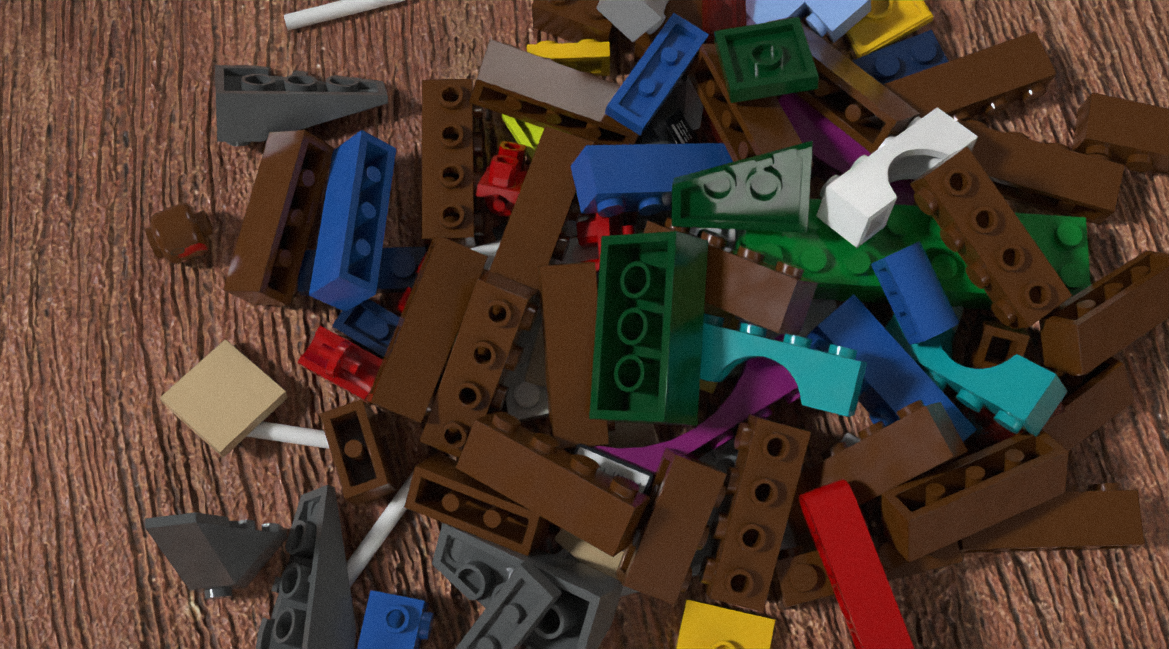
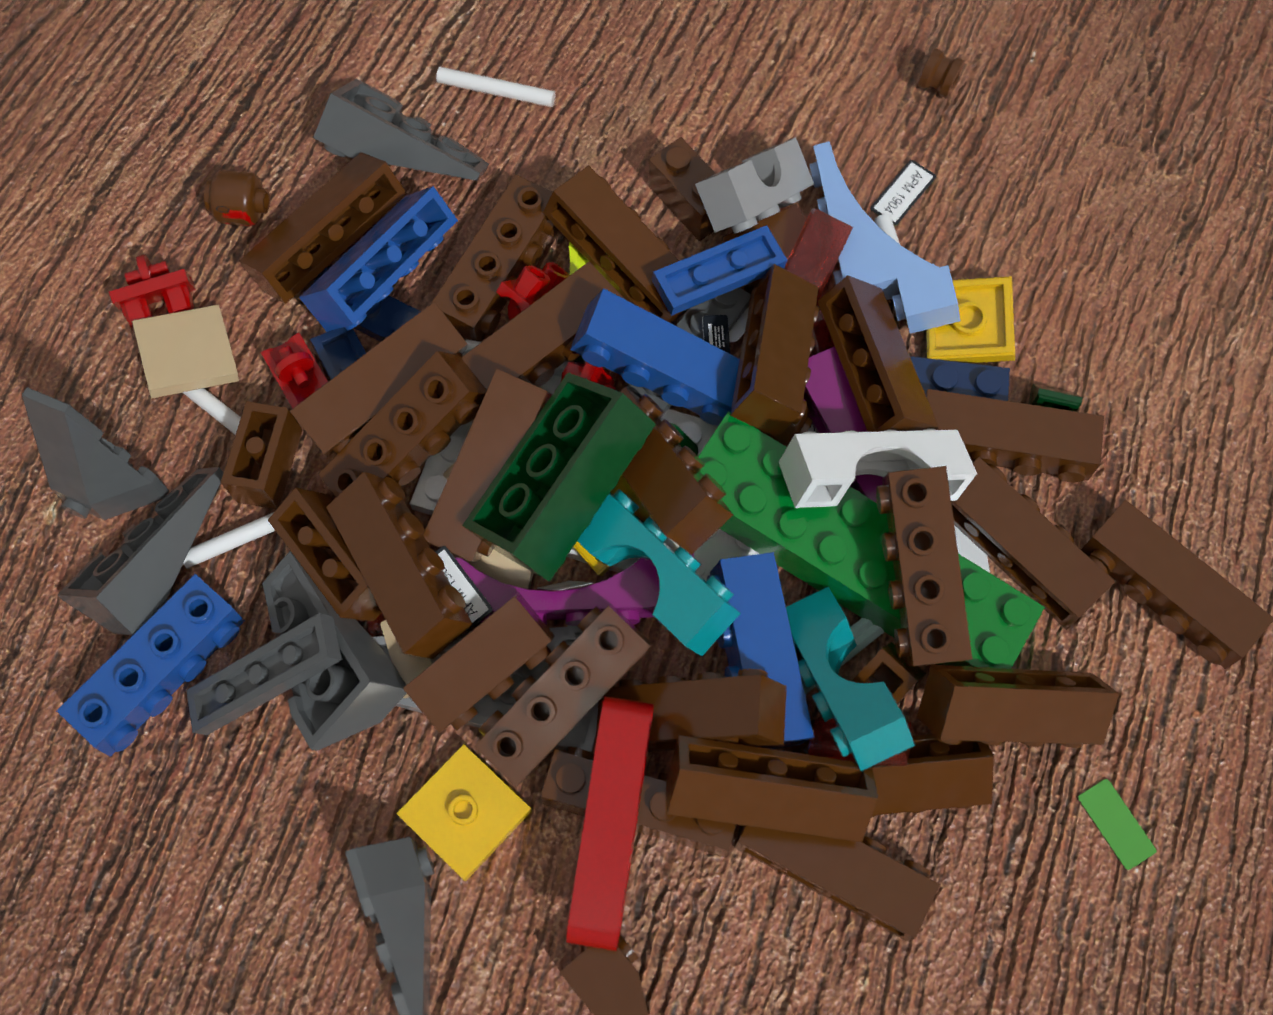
camera: 30 degrees right, 5 degrees down
(147, 376) = (152, 285): none -> red hips
(584, 56) = (673, 228): yellow plate -> none
(704, 414) = (565, 585): none -> white sticker
(748, 194) = (723, 406): dark green wing -> none
(765, 60) = (815, 302): dark green plate -> none
(915, 293) = (829, 578): blue brick -> none
(981, 37) = (1054, 398): none -> dark green slope

